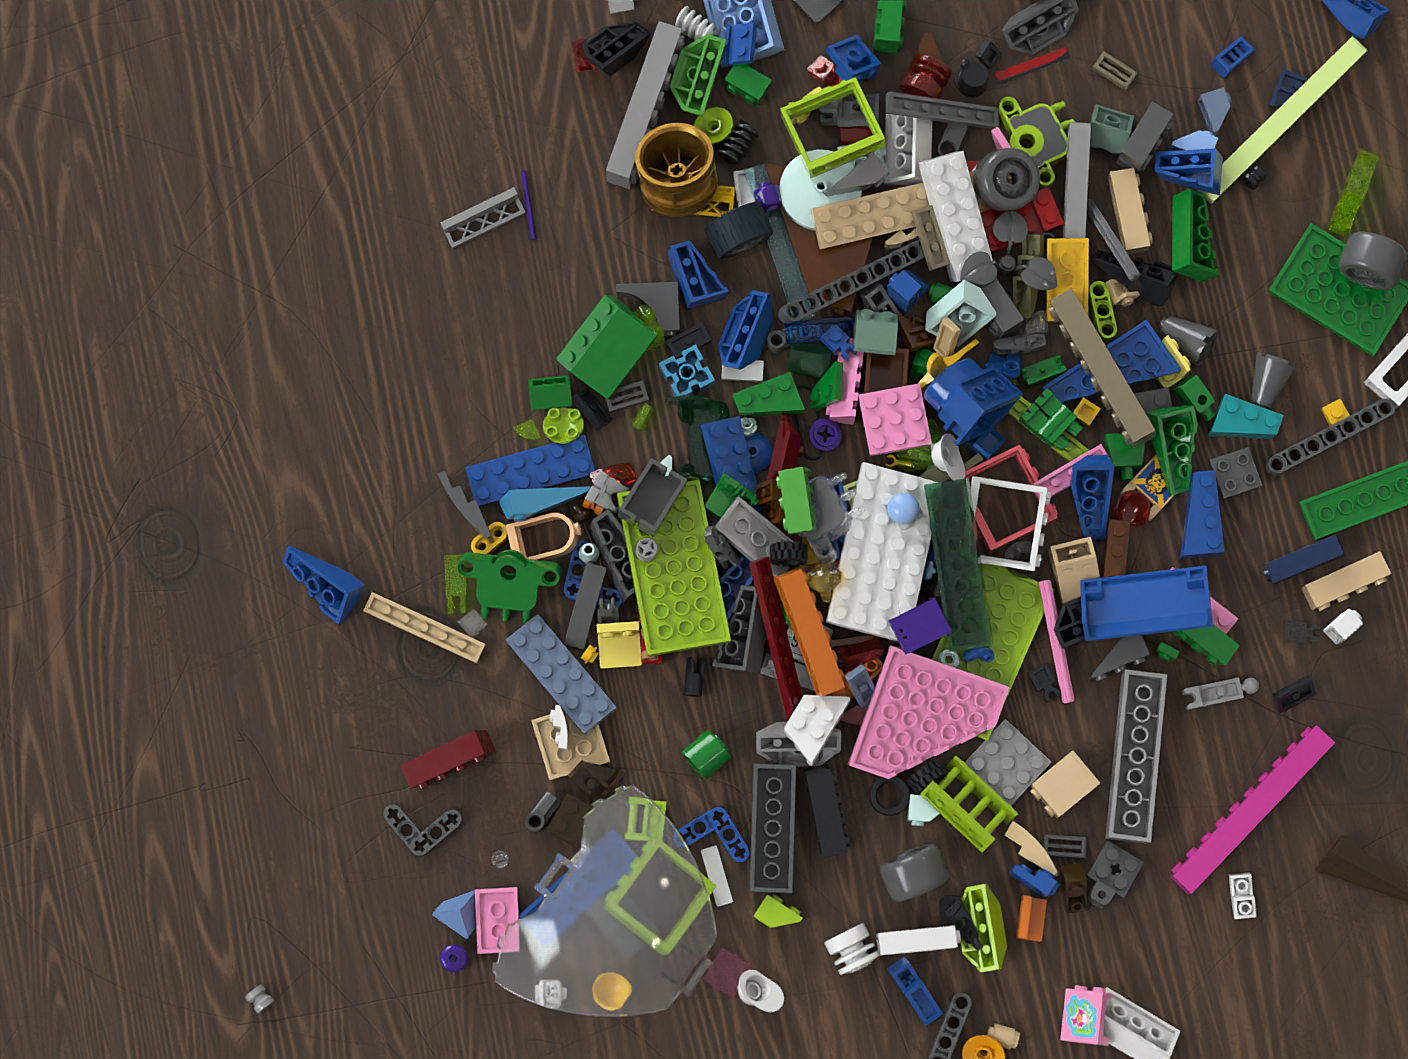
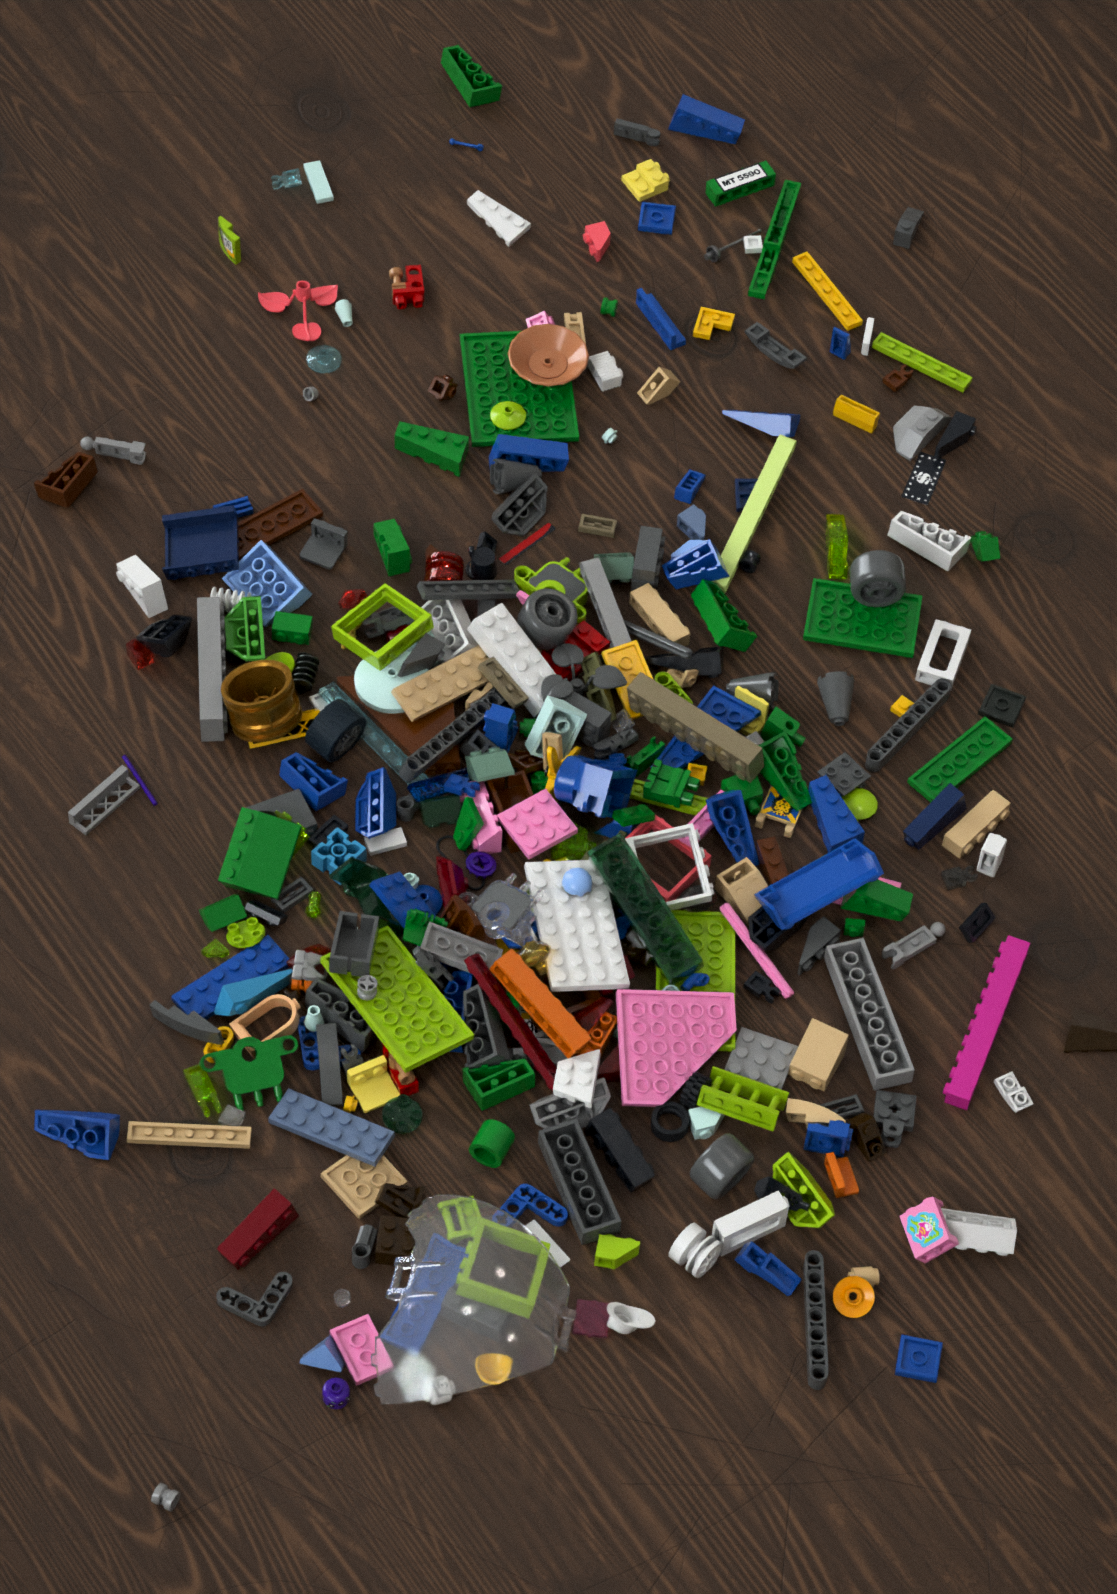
camera: 25 degrees left, 25 degrees down
(559, 721) = (351, 1164): white slope -> none
(635, 685) = (402, 1114): none -> clear green dish
(694, 682) = (453, 1091): black hinge -> none
(740, 44) = (274, 597): blue plate -> none
(740, 690) = (498, 1082): none -> green wedge
(768, 196) = (351, 696): dark purple head -> none
(770, 398) = (420, 850): green wedge -> none
(788, 553) = (493, 946): black tyre -> none
(796, 500) = (482, 899): bright green wedge -> none
(853, 59) = (374, 578): blue plate -> none
(860, 685) = (604, 1033): sand blue plate -> none
(920, 626) = (634, 965): dark purple container -> none
(947, 457) = (591, 835): white piece -> none
(996, 445) = (633, 815): none -> green plate
(1132, 507) = (771, 825): clear red helmet -> none
(1238, 510) = (861, 803): none -> lime dish
(1244, 419) = (832, 734): teal wedge -> none

